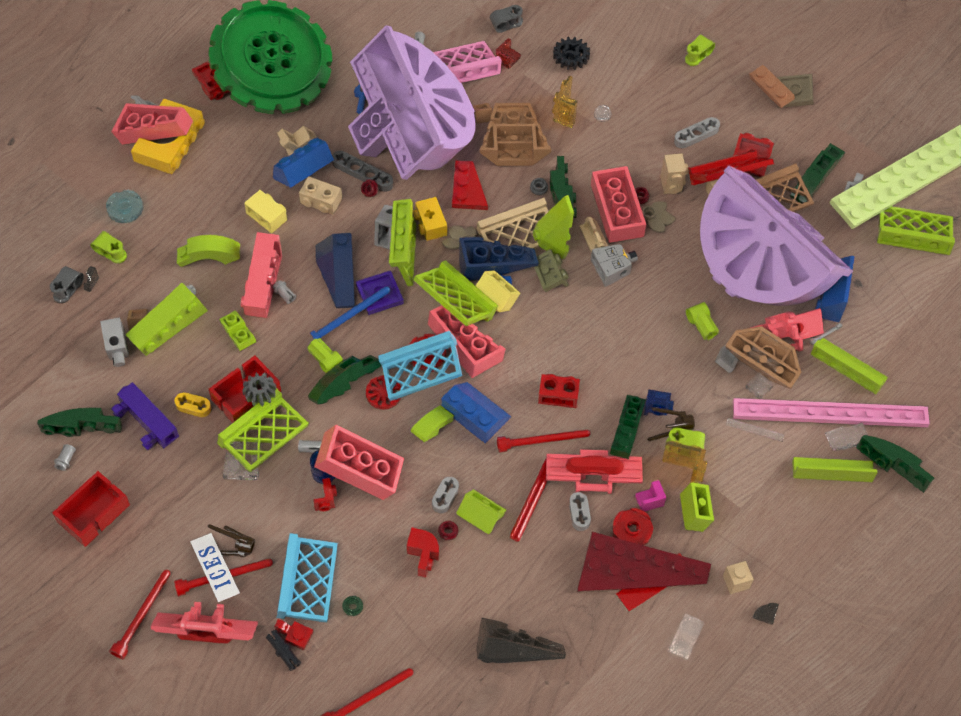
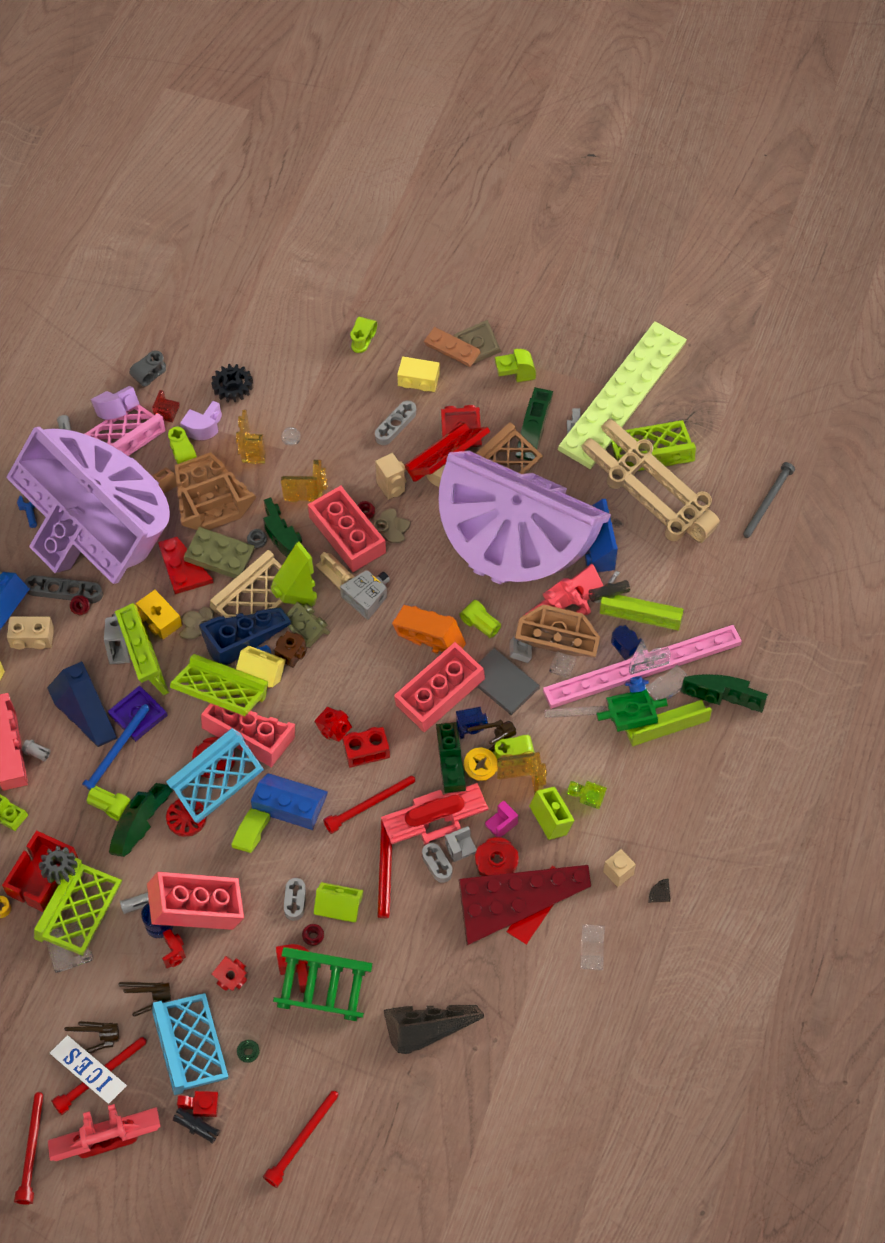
camera: 20 degrees left, 0 degrees up
(300, 526) = (160, 992): none -> dark brown plant
(357, 532) = (222, 970): none -> red brick
(438, 552) = (314, 961): none -> green fence
(465, 38) = (115, 405): none -> lavender brick
(502, 186) = (219, 553): none -> olive plate
(507, 89) = (180, 445): none -> lime piece
(529, 285) = (291, 647): none -> reddish brown brick
(530, 79) = (202, 426): none -> lavender brick
(538, 361) = (333, 723): none -> red brick
(597, 158) = (305, 487): none -> clear yellow bracket
(606, 503) = (460, 844): none -> light grey panel
(642, 364) = (439, 687): none -> coral brick
(654, 434) = (480, 754): none -> yellow gear
(655, 313) = (428, 628): none -> orange wedge
(700, 380) = (506, 682): none -> dark grey tile
(733, 99) = (418, 374): none -> light yellow brick
(738, 504) = (590, 794): none -> clear neon green plate
(805, 446) = (632, 710): none -> green plate
(818, 426) = (637, 684): none -> blue plate
(824, 118) = (518, 363): none -> lime brick
(824, 386) = (625, 641): none -> clear blue brick
(826, 337) = (609, 590): none -> clear smoke pin
(834, 408) = (644, 661): none -> clear slope
(937, 306) = (703, 521): none -> tan beam

